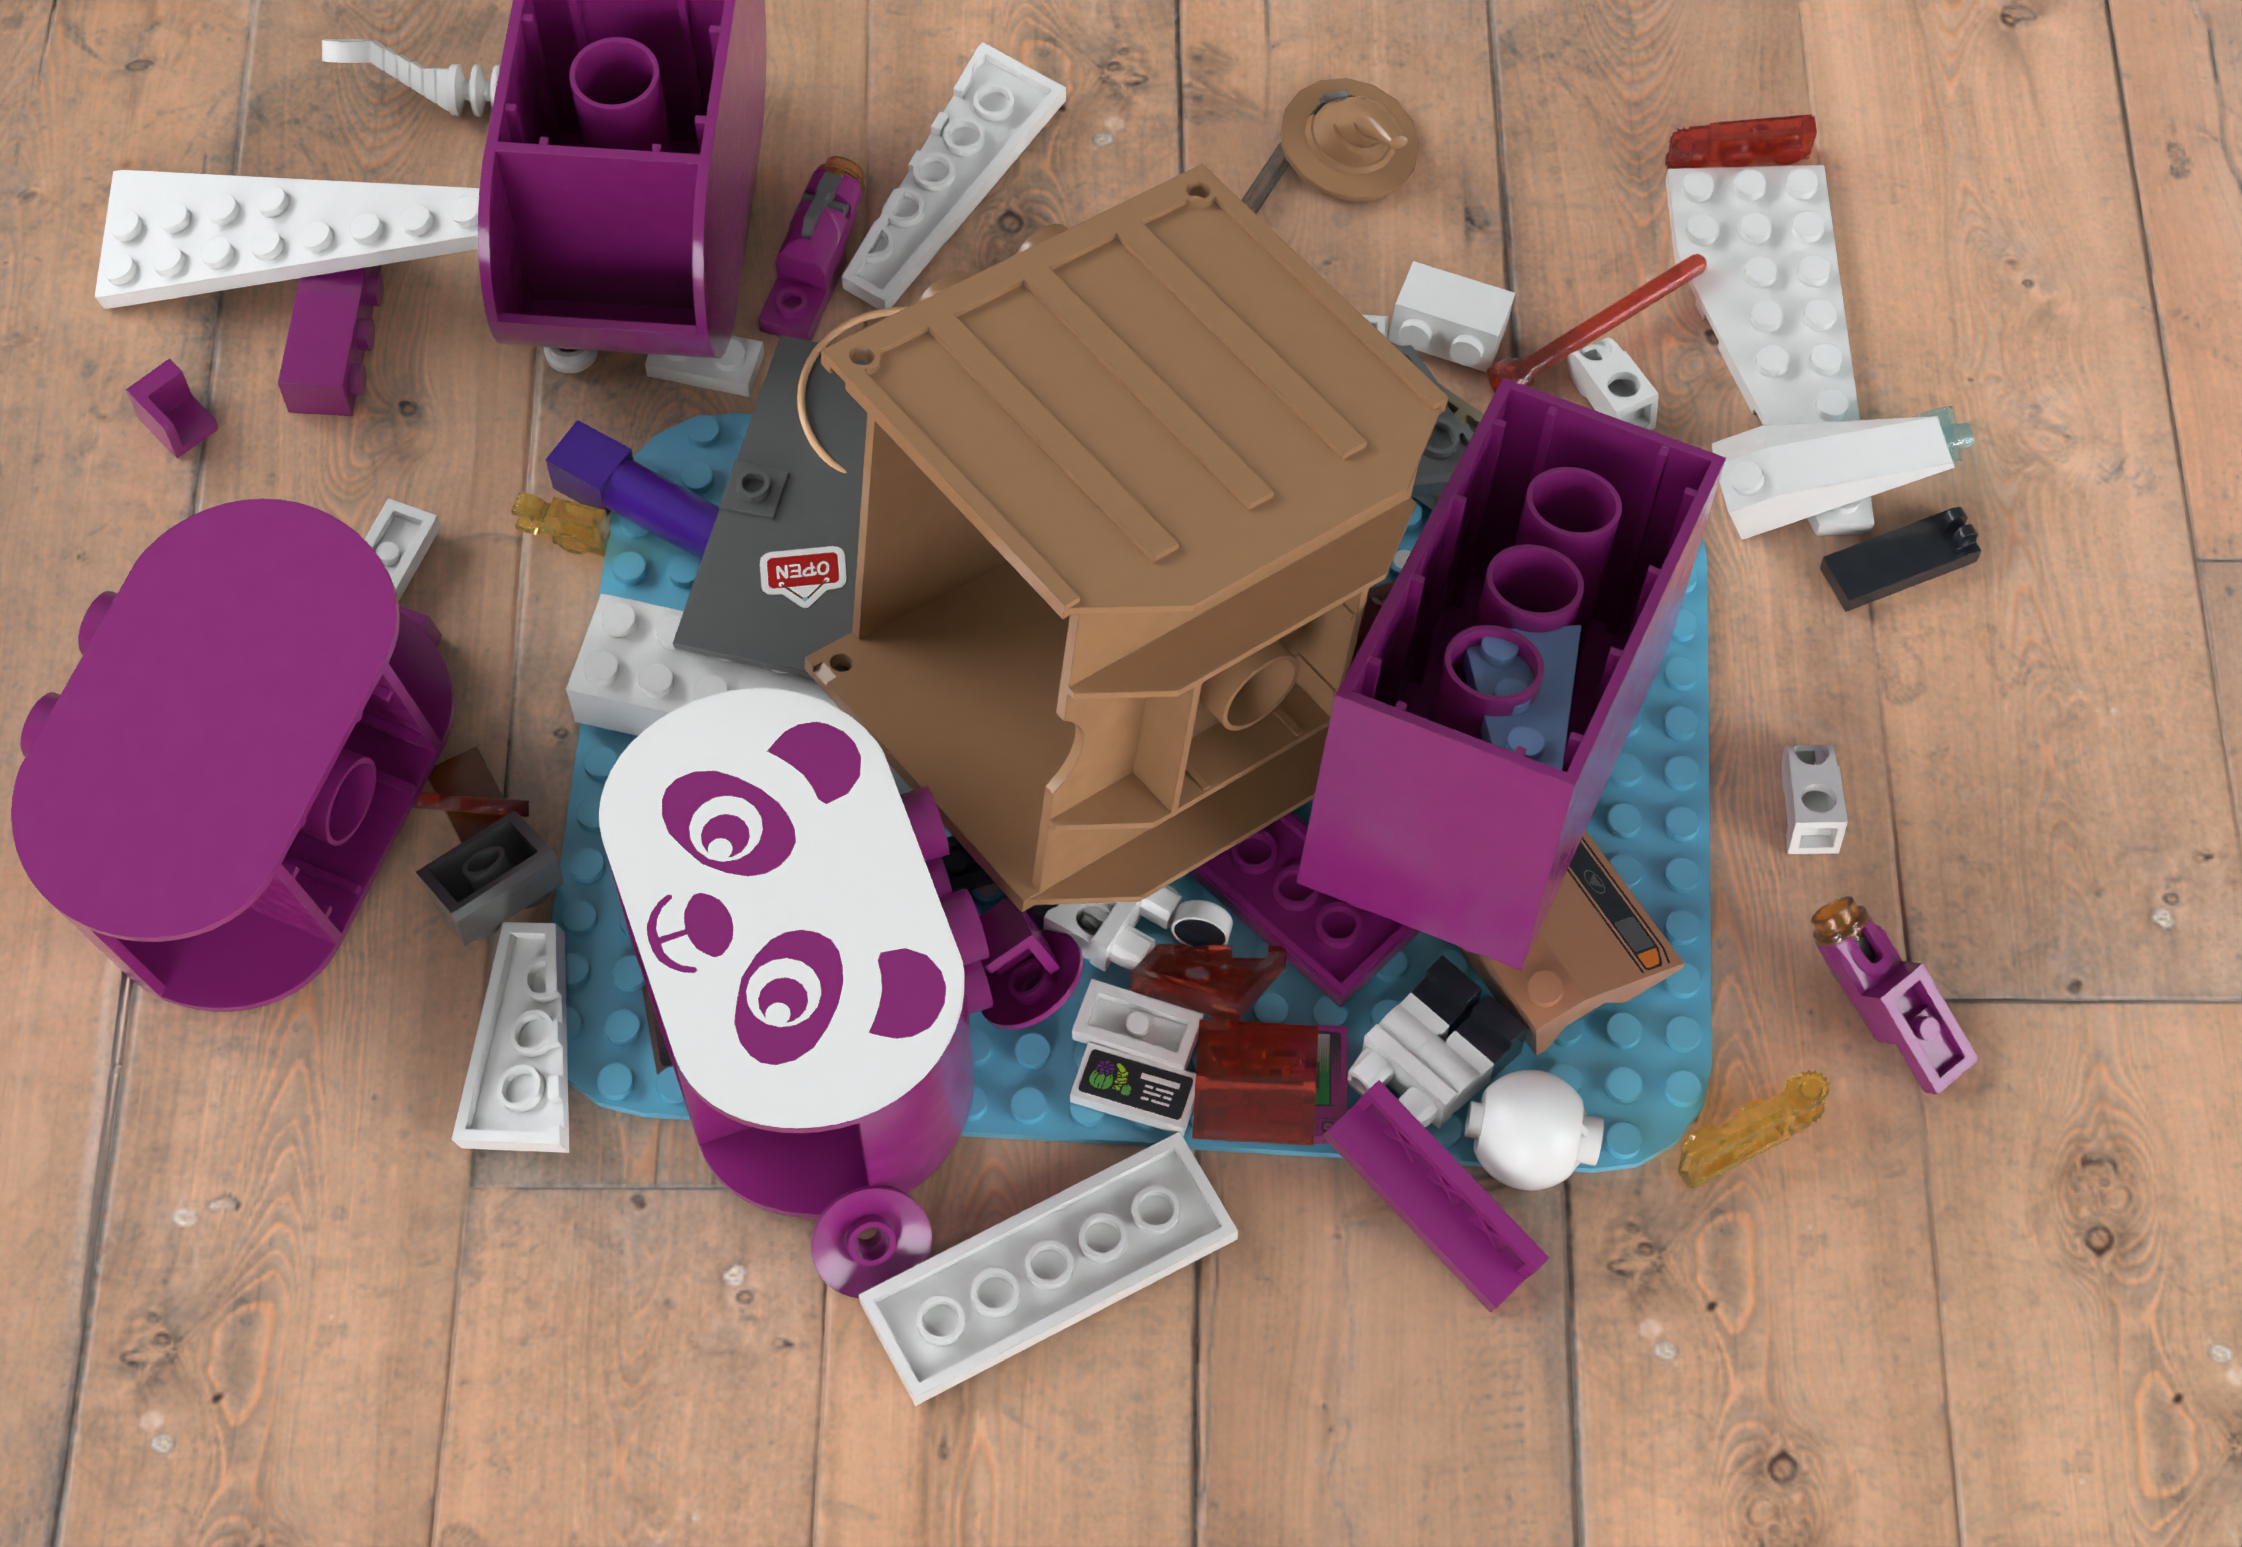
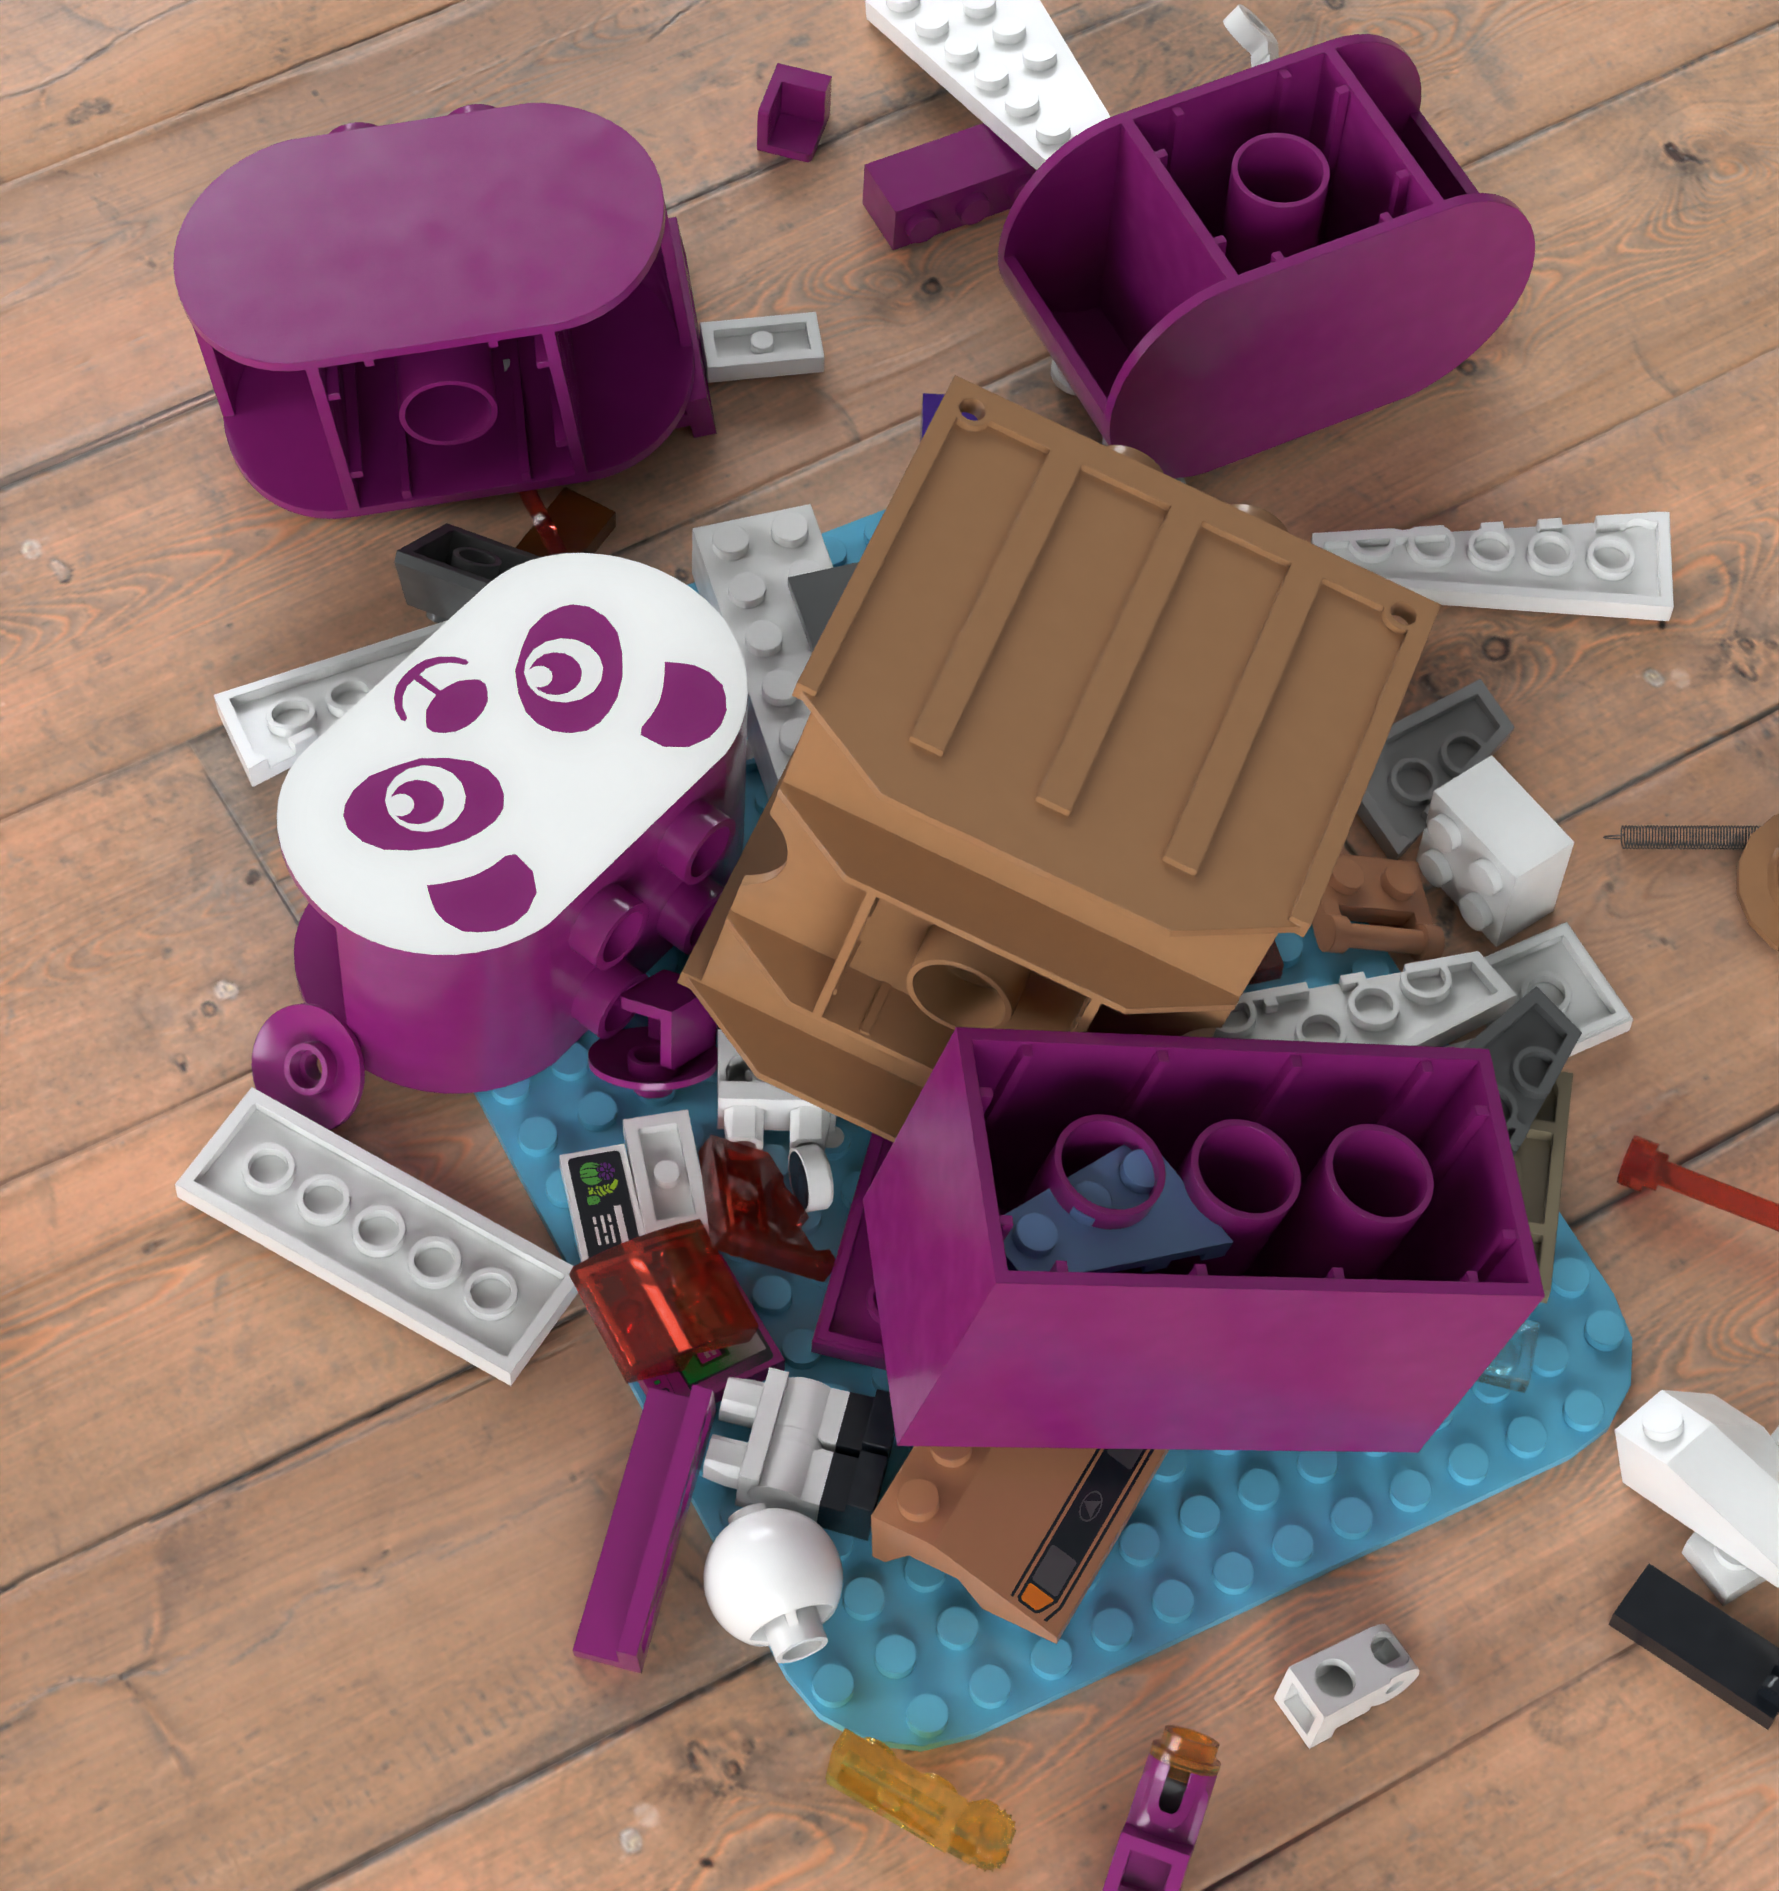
camera: 55 degrees right, 5 degrees down
(570, 524) = (889, 455): clear yellow plate -> none
(813, 250) = (1332, 488): magenta plate -> none
(1451, 316) = (1666, 1069): white brick -> none
(1614, 383) = (1699, 1267): white leg -> none

